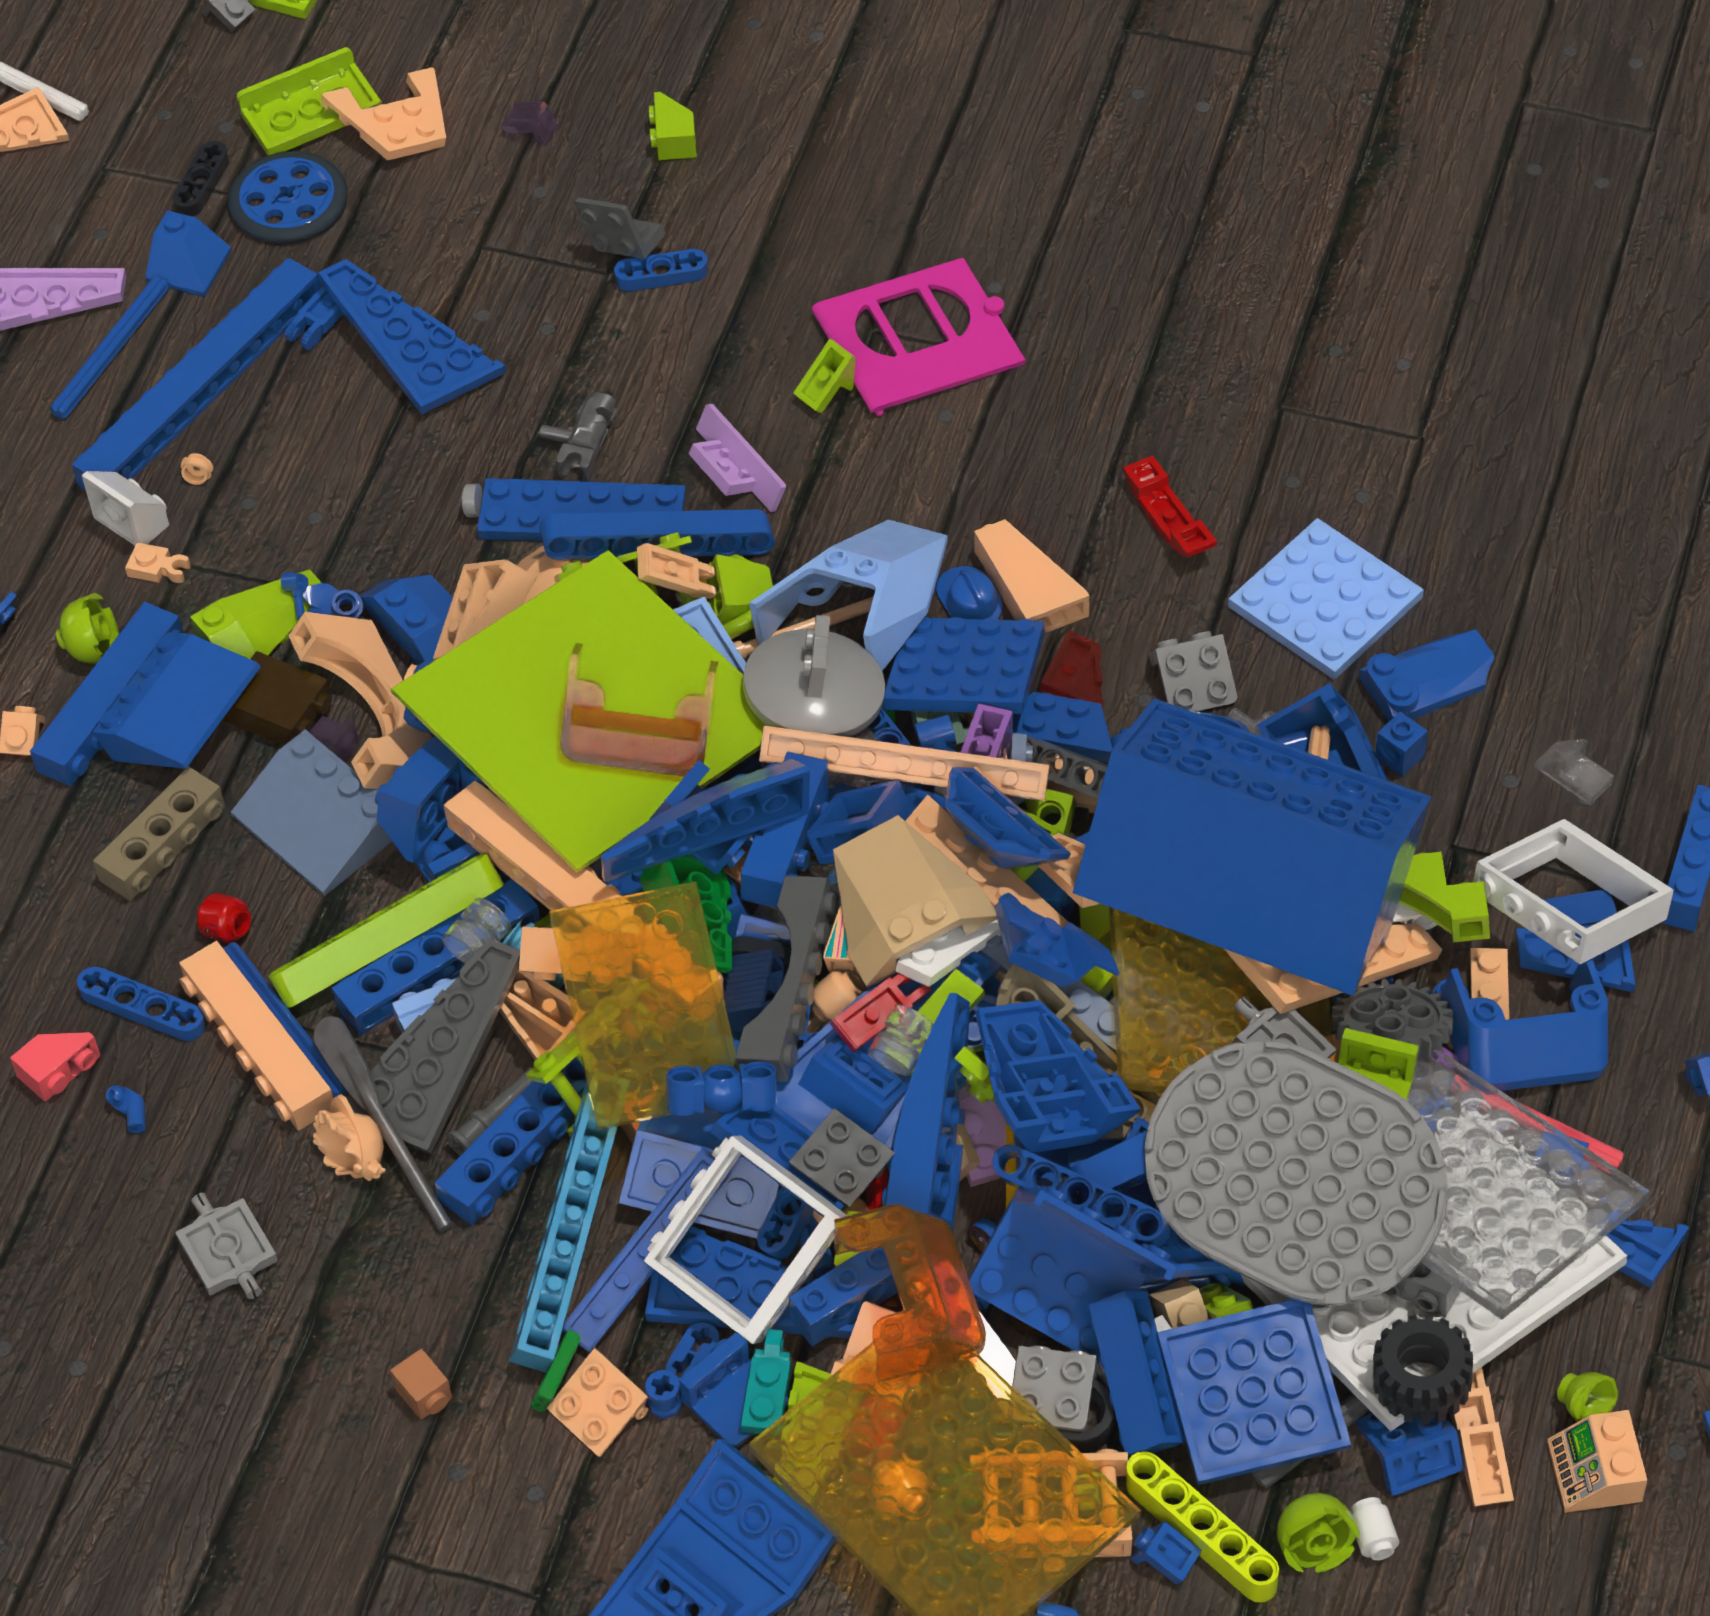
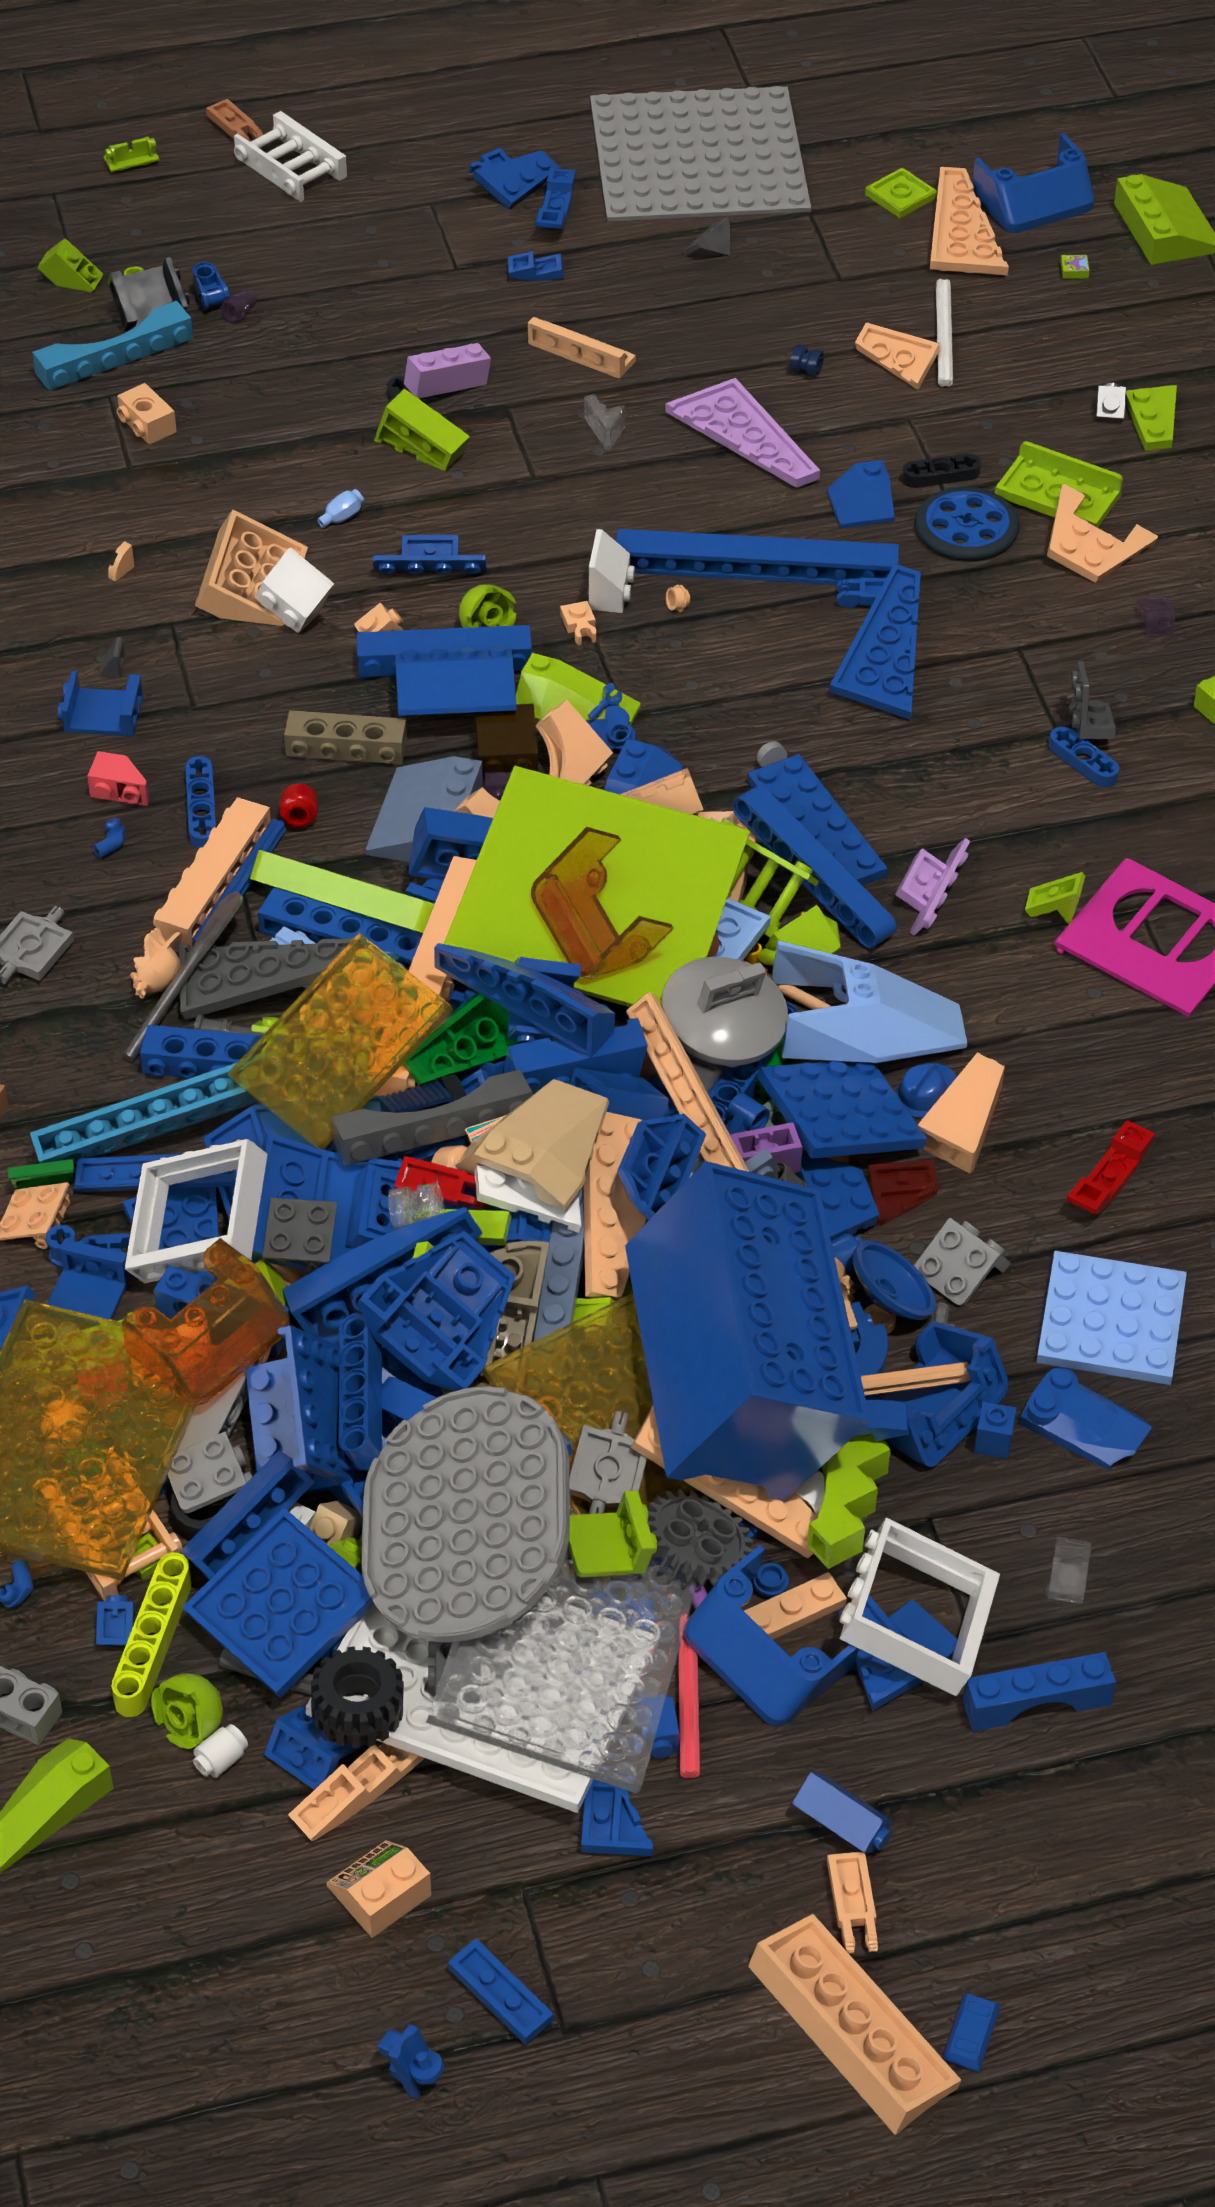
camera: 55 degrees right, 5 degrees down
(109, 347) = (748, 501): blue axle -> none
(478, 924) = (376, 929): clear wheel -> none
(586, 436) = (882, 789): flat silver piece -> none
(674, 571) = (771, 882): light nougat hinge -> none
(721, 1088) = (300, 1122): blue piece -> none
(766, 1385) = (111, 1299): teal hinge -> none
(1046, 948) = (565, 1247): blue piece -> none
(1587, 1394) = (435, 1847): lime piece -> none

